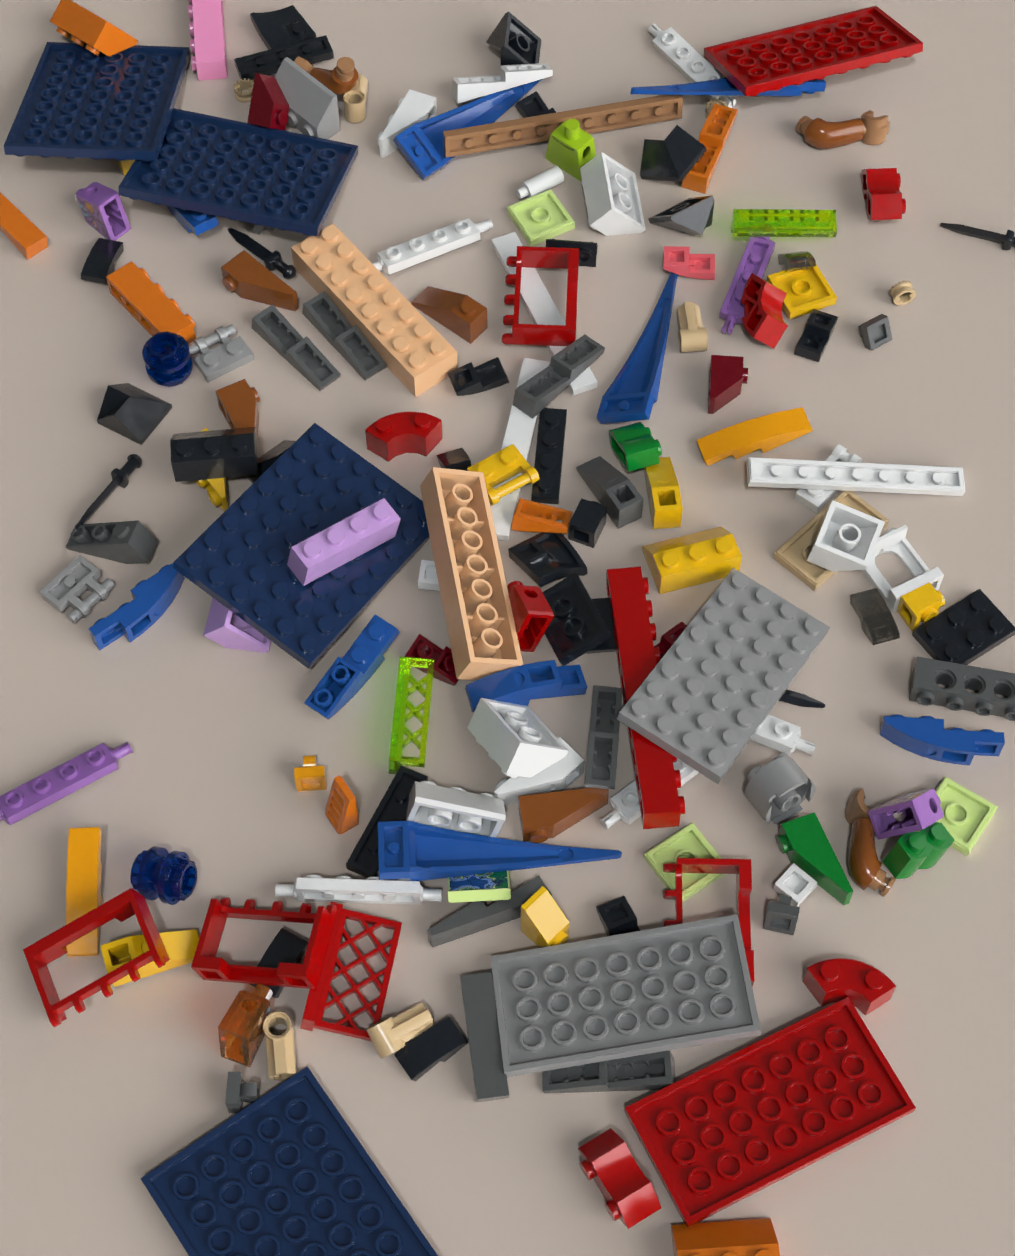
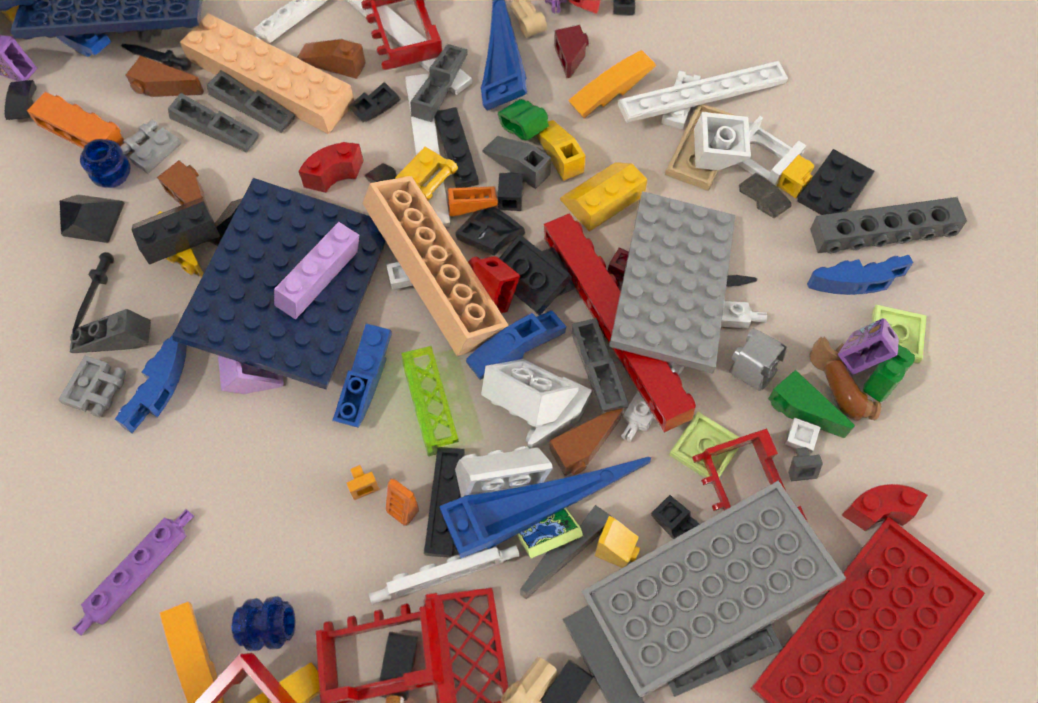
camera: 20 degrees left, 5 degrees up
(443, 660) = (418, 339): dark red slope -> none

